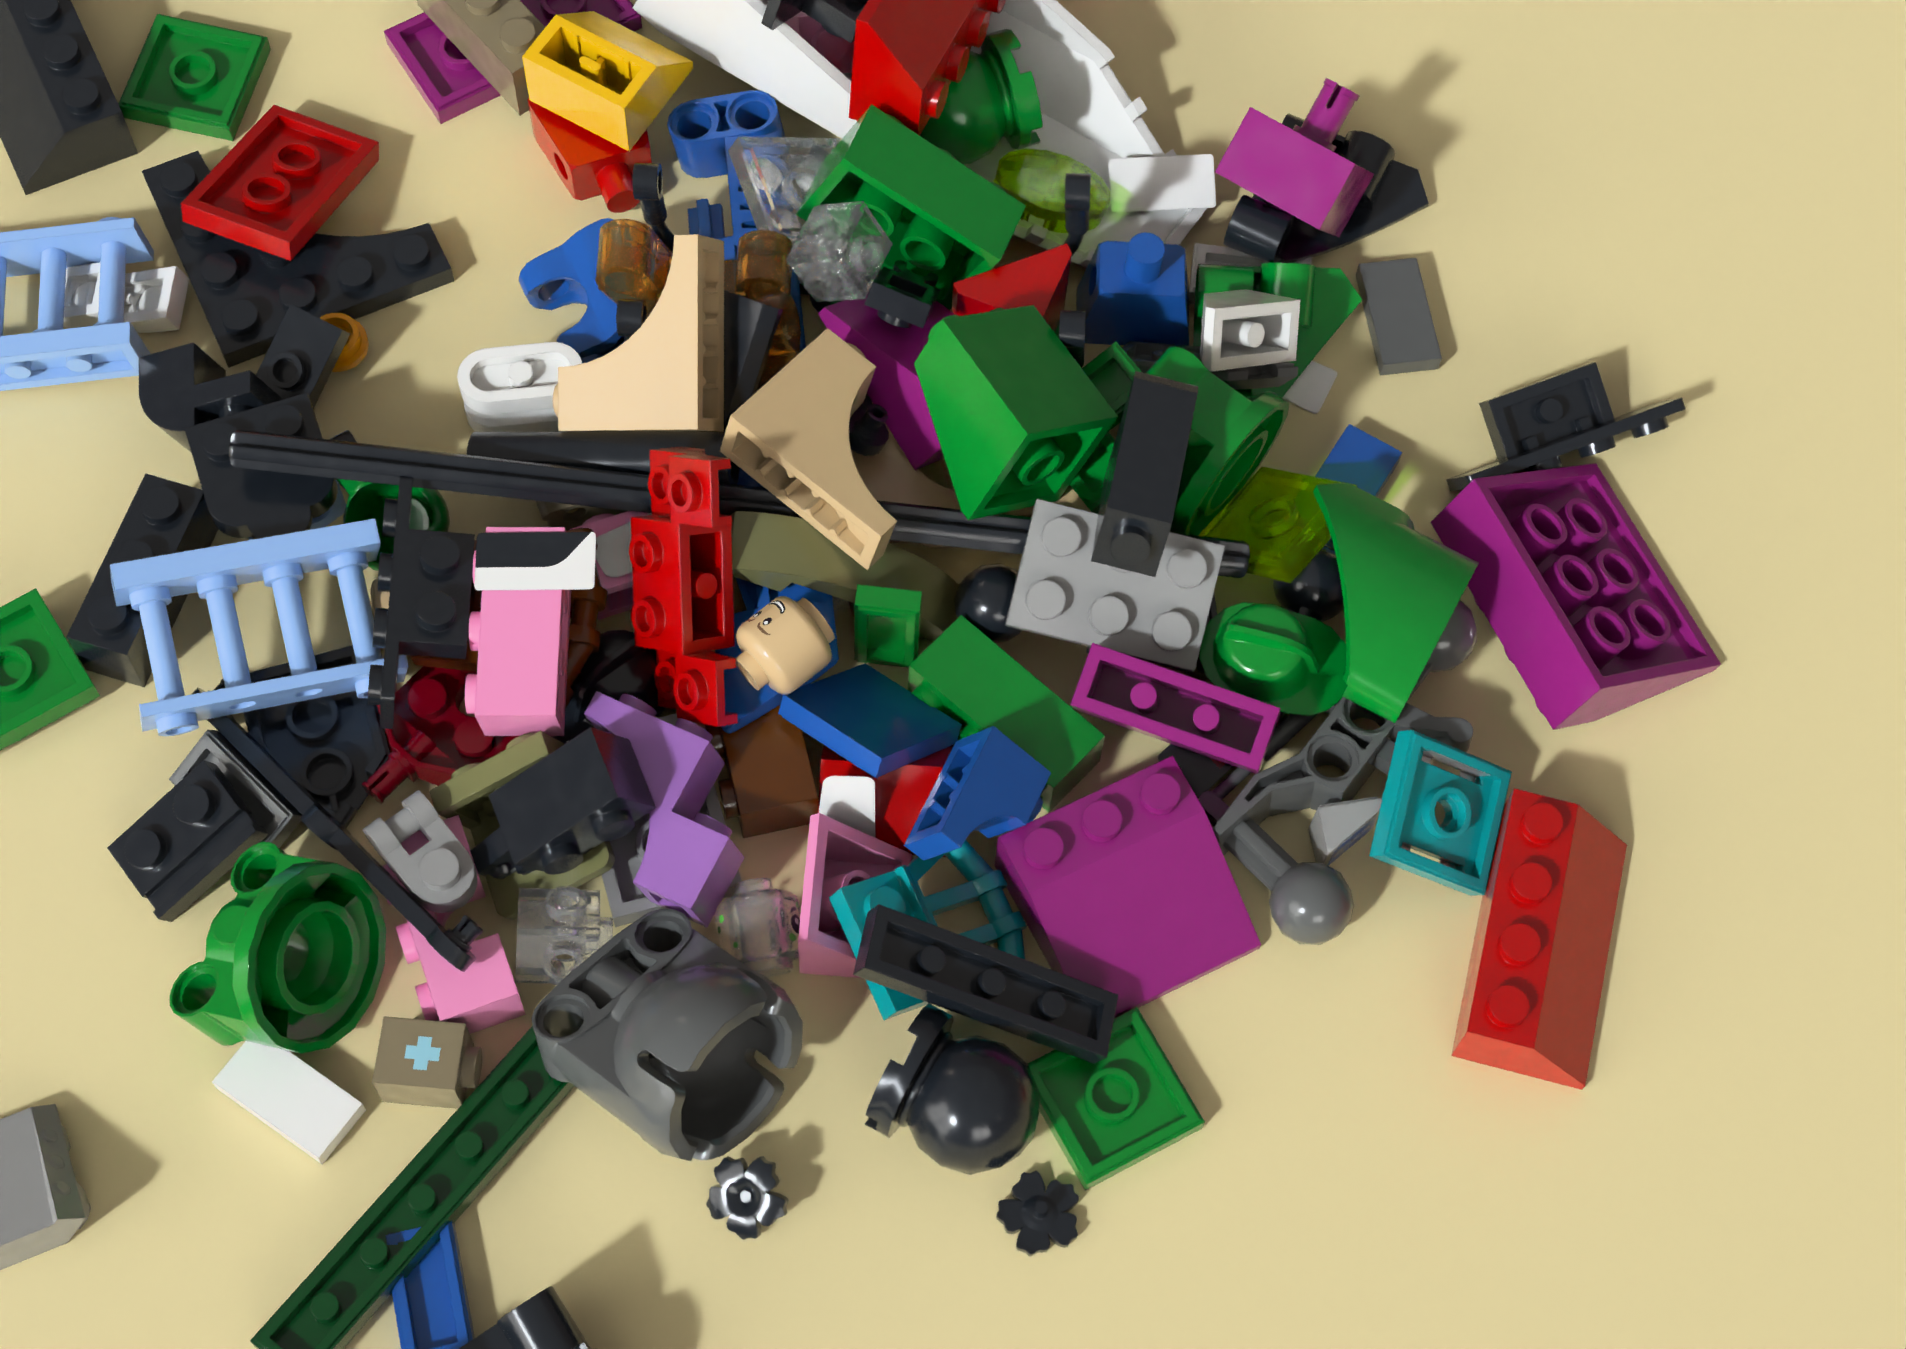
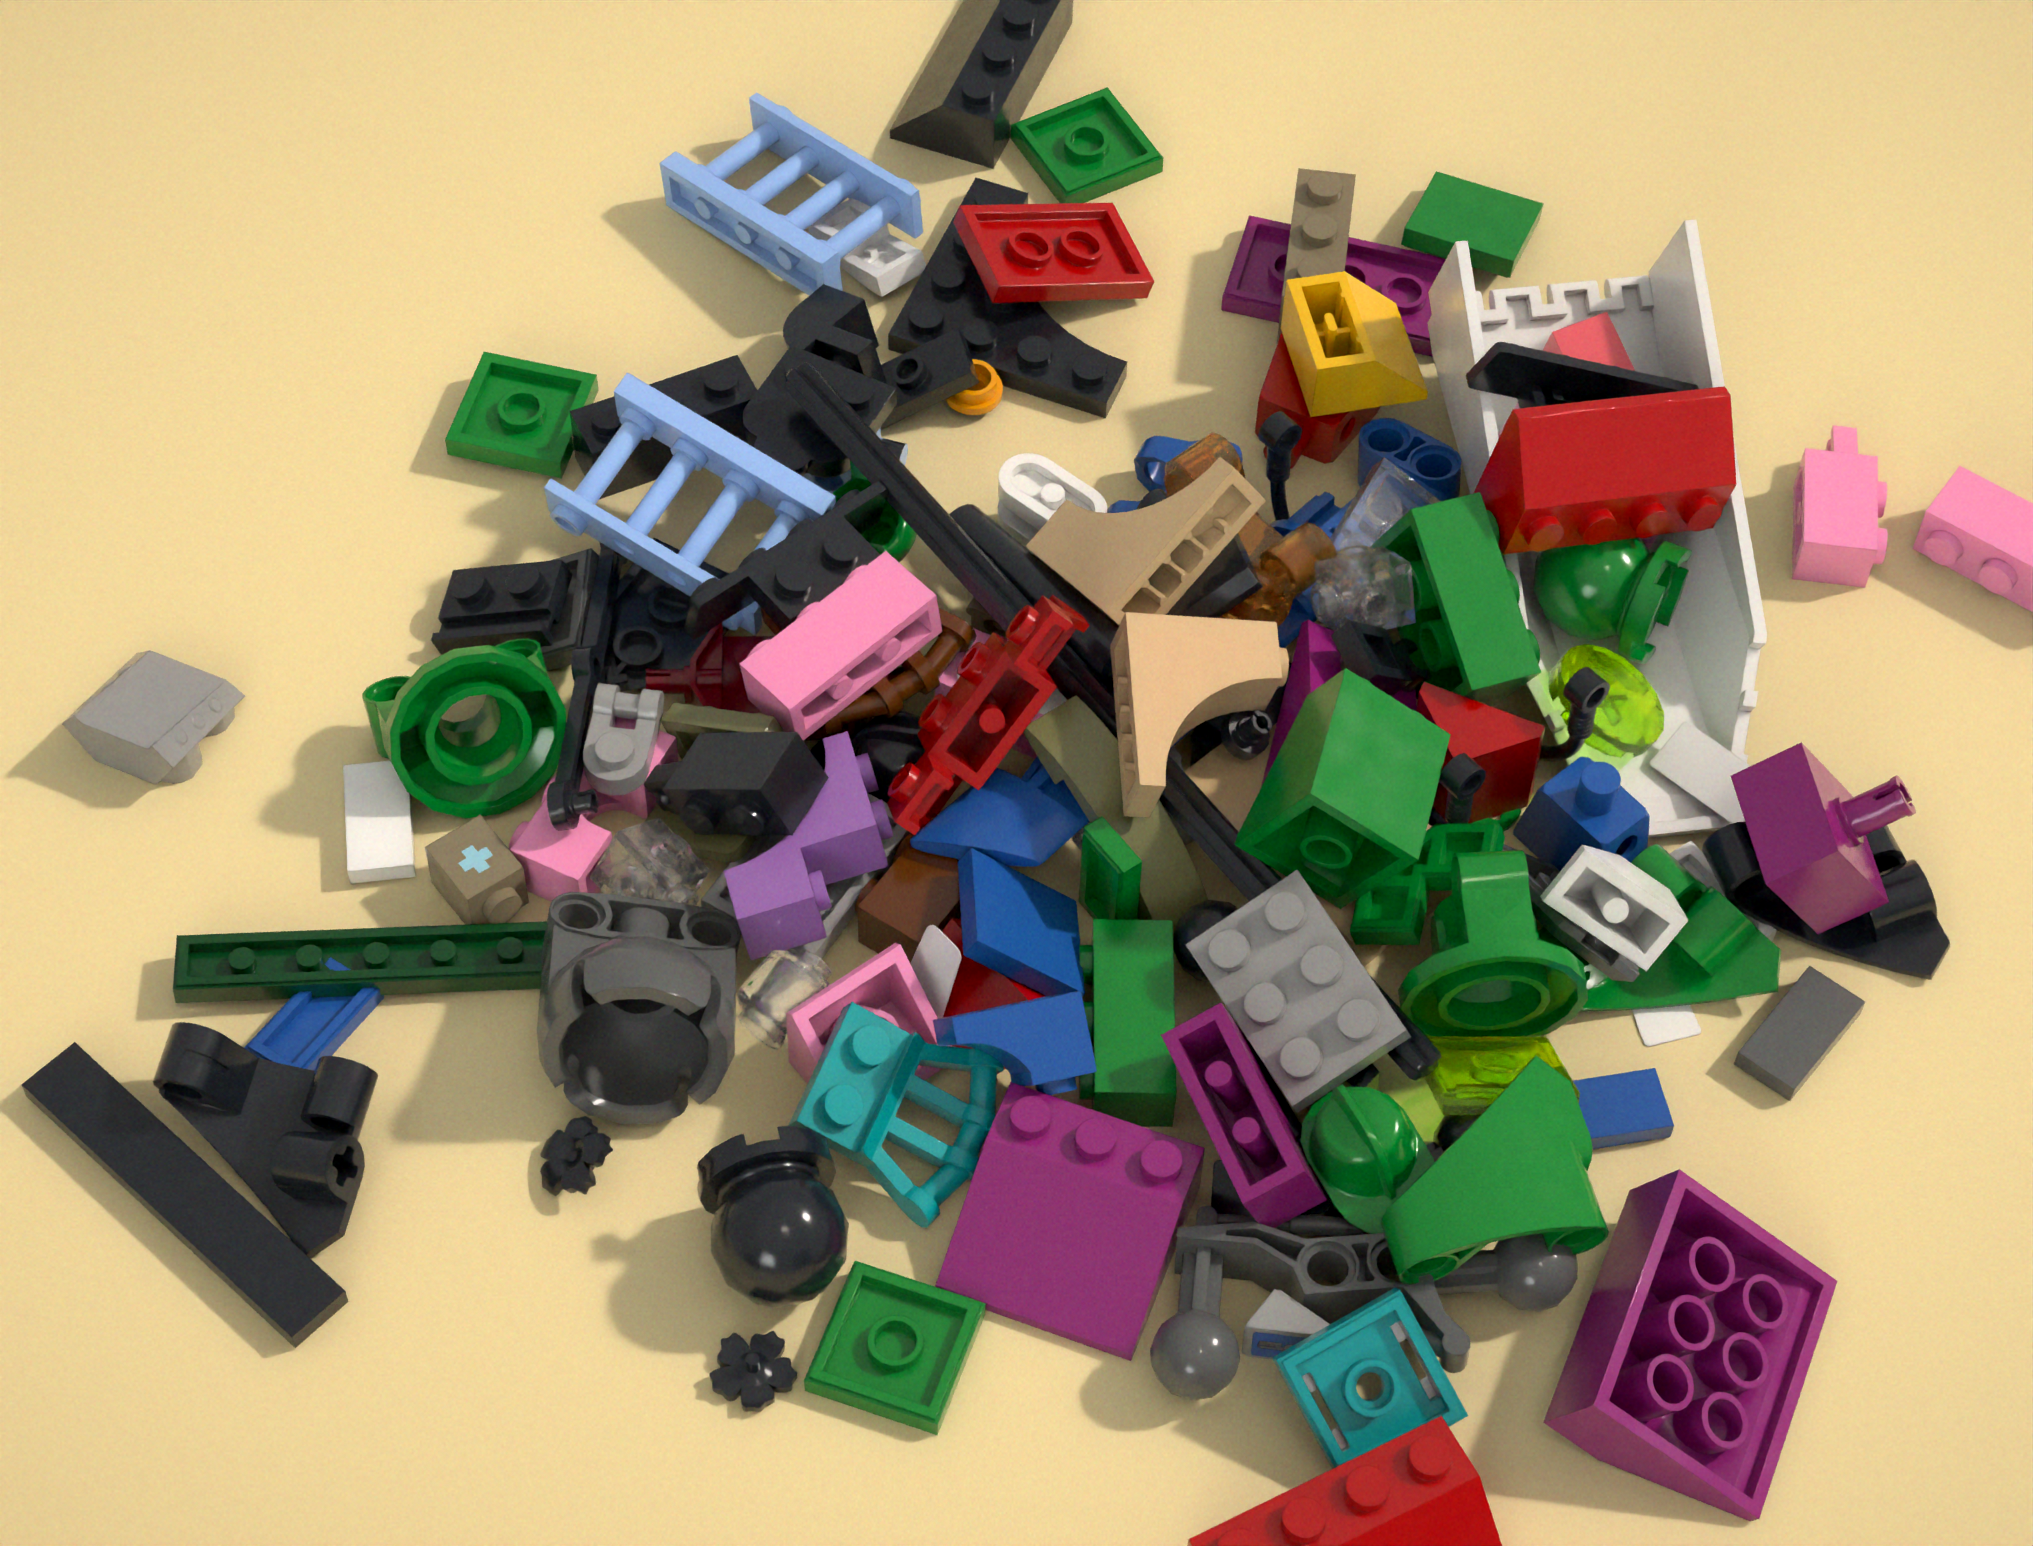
camera: 50 degrees right, 10 degrees down
(535, 561) = (891, 599): sticker -> none
(784, 645) = (1000, 808): tan head -> none
(985, 984) = (878, 1164): black plate -> none
(1144, 474) = (1381, 911): black slope -> none
(1557, 417) = (1841, 1214): black bracket -> none

